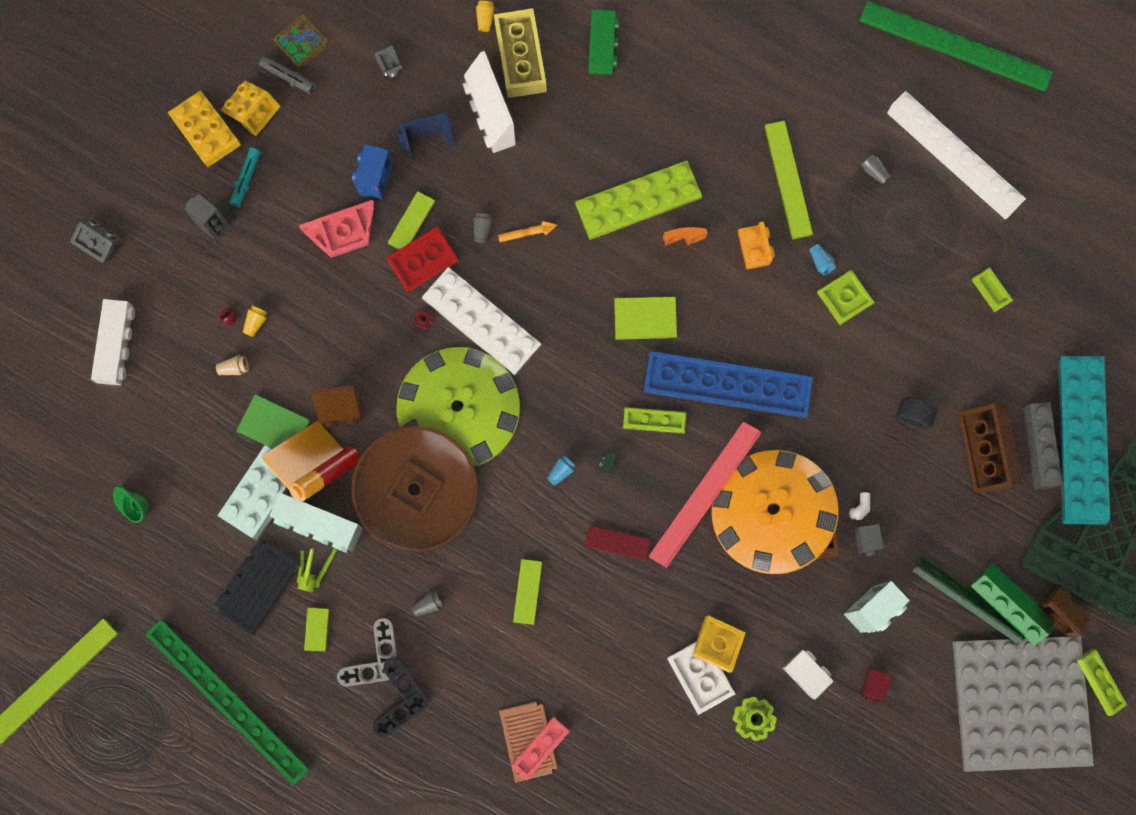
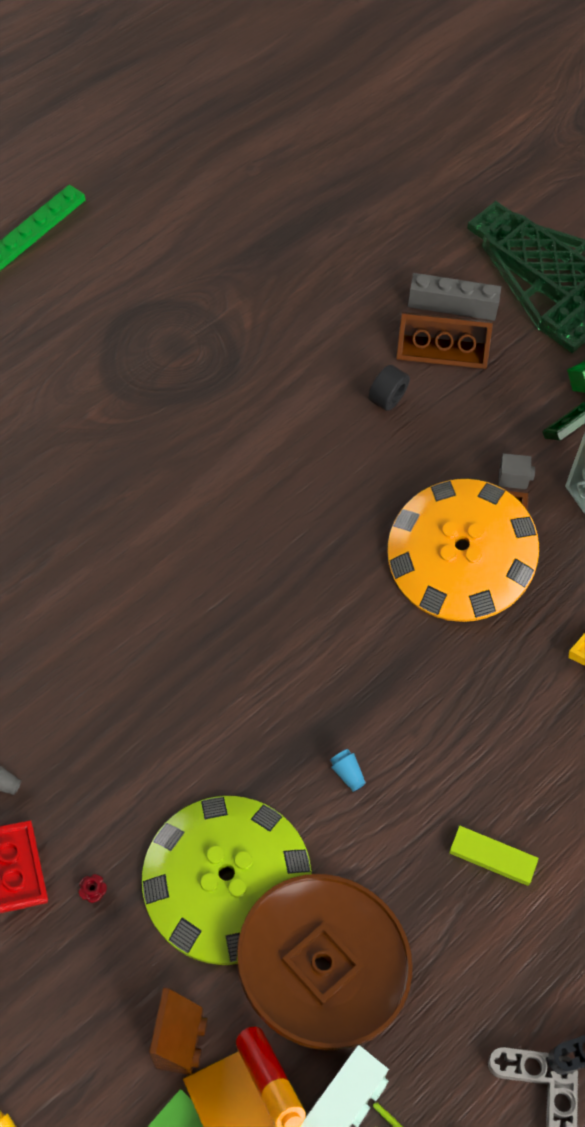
camera: 75 degrees left, 20 degrees down
(429, 603) = (483, 987): dark grey cone -> none
(481, 321) = (120, 816): white plate -> none
(544, 228) = (30, 704): light orange piece -> none
(606, 463) = (355, 713): clear green plate -> none
(617, 543) = (455, 732): dark red tile -> none
(638, 200) = (40, 594): lime plate -> none
(645, 318) = (187, 624): lime tile -> none
(654, 420) = (315, 649): lime tile -> none
(690, 234) = (105, 550): orange slope -> none
(704, 494) = (424, 620): coral tile -> none
(728, 384) = (296, 562): blue plate -> none
(756, 246) = (145, 486): light orange bracket -> none
(788, 180) = (81, 436): lime tile -> none
(822, 260) = (187, 428): dark azure cone -> none
(845, 297) = (236, 421): lime tile -> none
(863, 509) = (476, 467): white arm -> none
(875, 168) = (104, 353): dark grey cone -> none
(955, 155) = (120, 282): white brick -> none
(992, 290) = (275, 295): lime tile -> none
(1083, 440) = (461, 256): teal brick -> none

